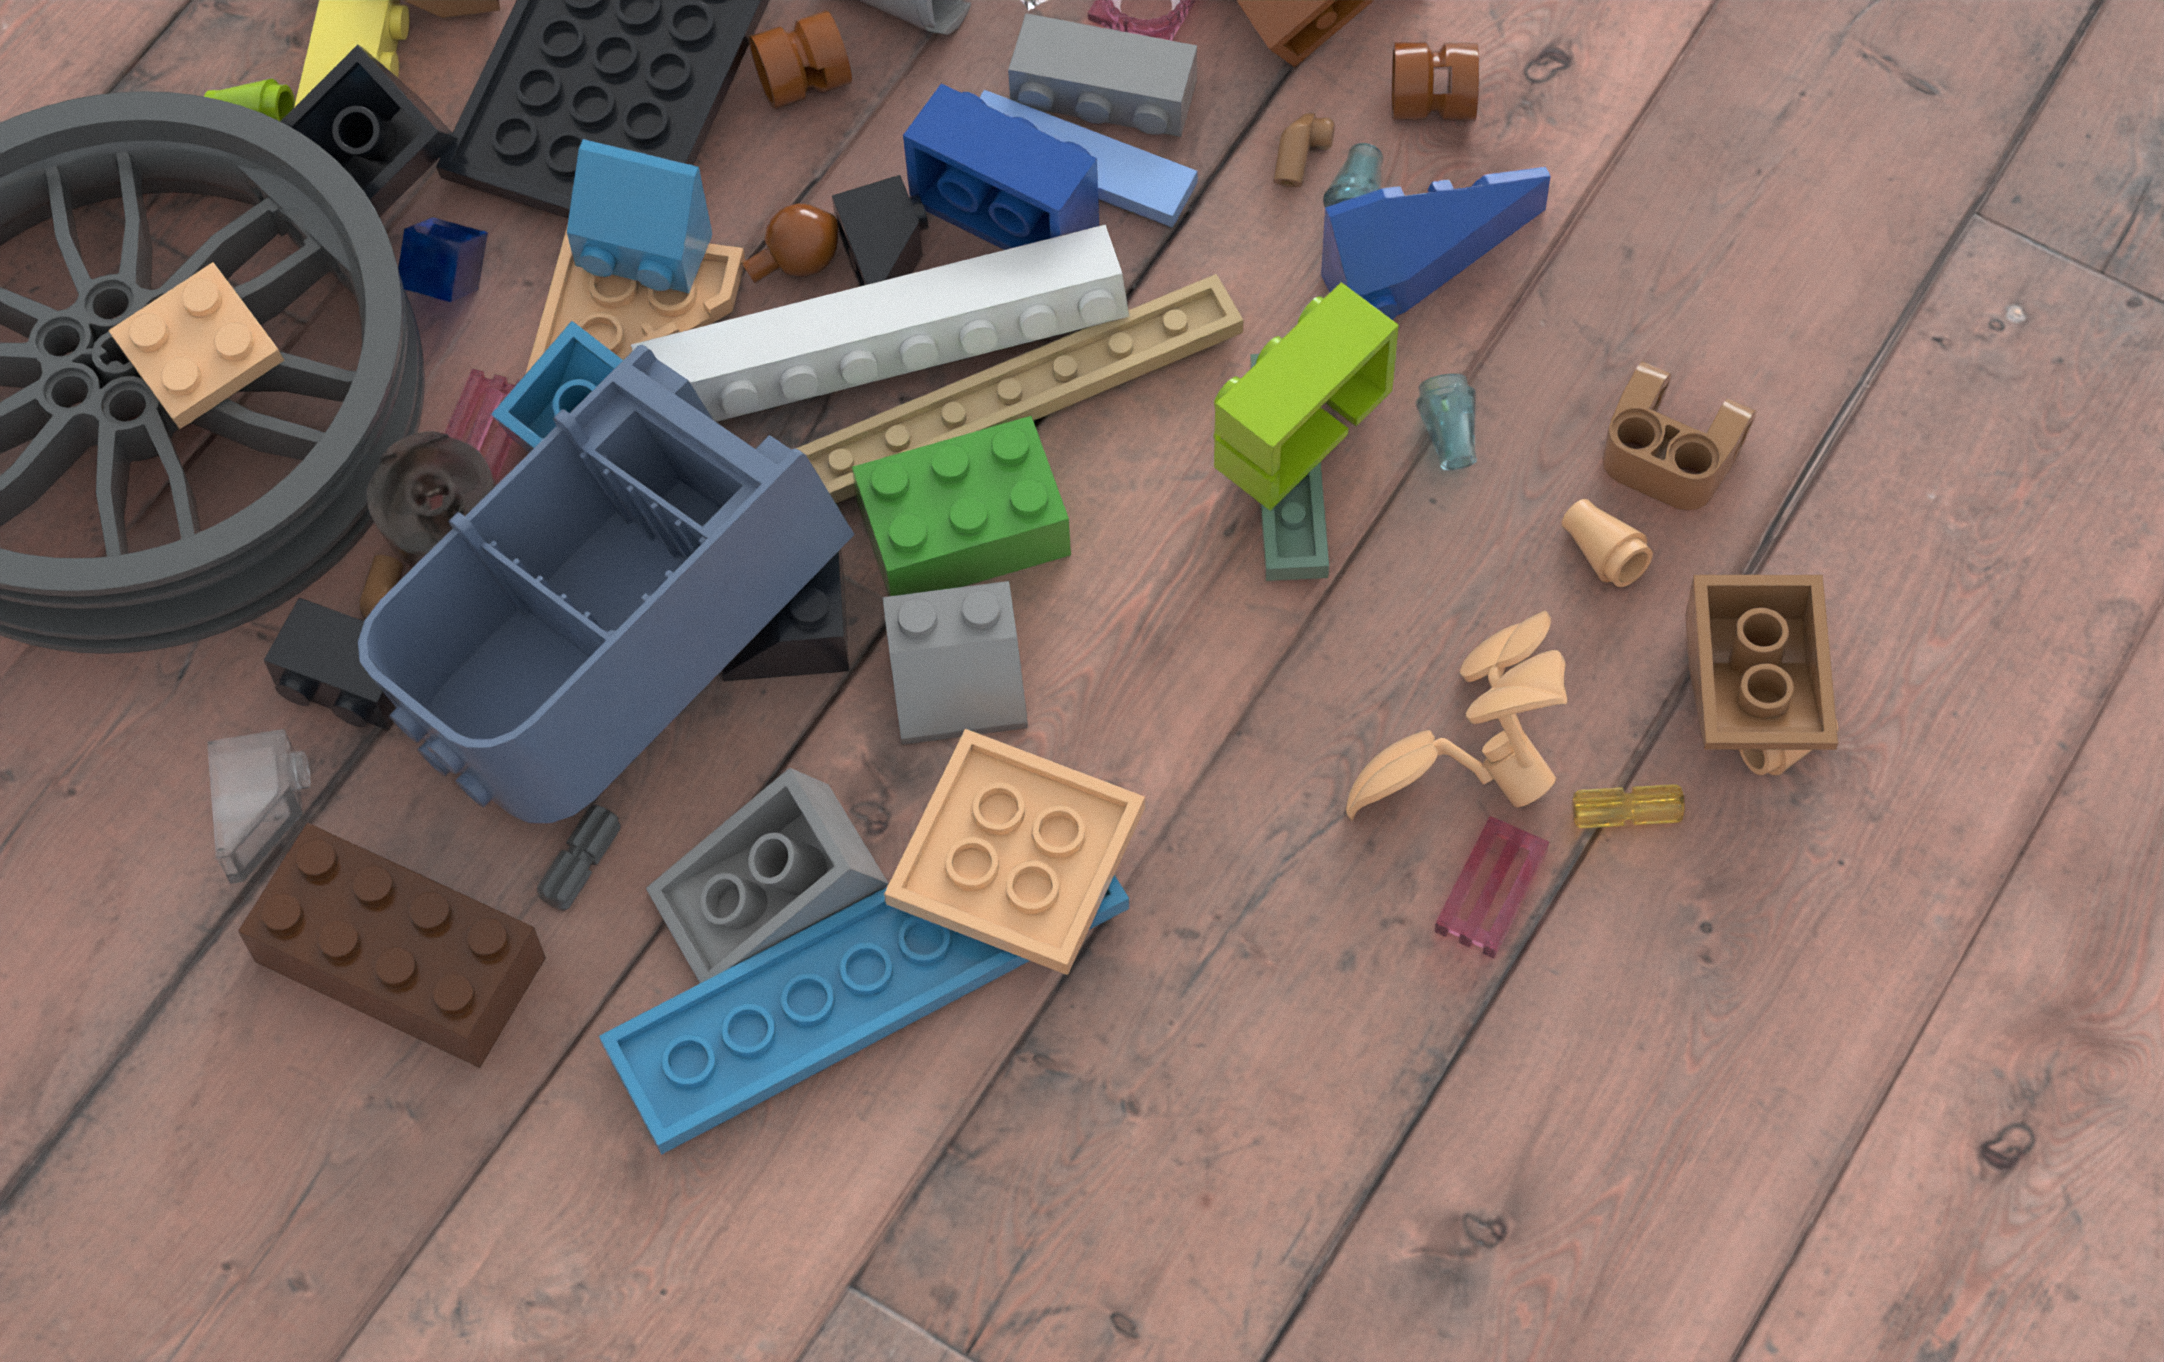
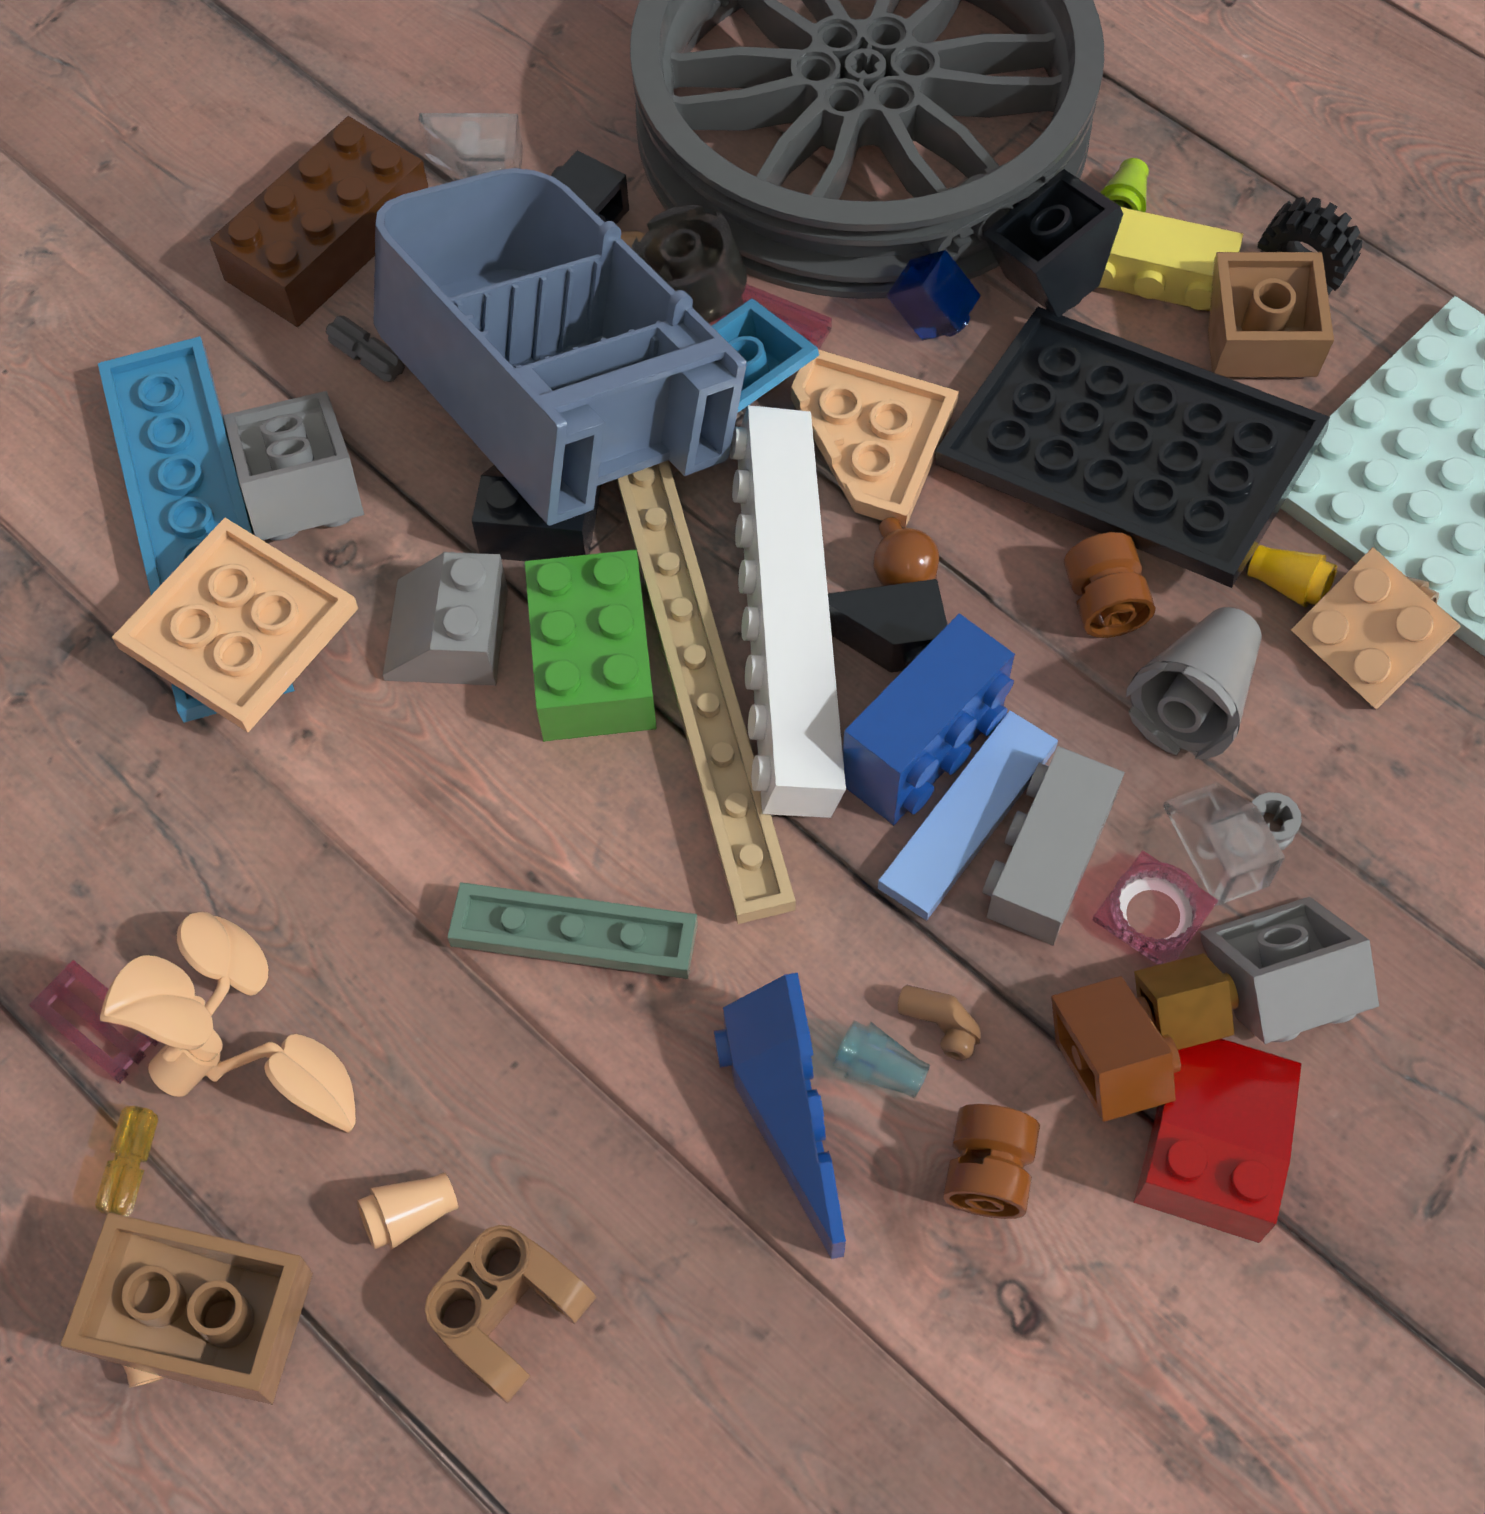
camera: 100 degrees right, 0 degrees up
(196, 345) = (849, 101): light nougat plate -> none
(638, 217) = (923, 417): dark azure slope -> none
(1273, 418) = (599, 918): lime piece -> none
(1449, 416) = (586, 1089): clear light blue cone -> none

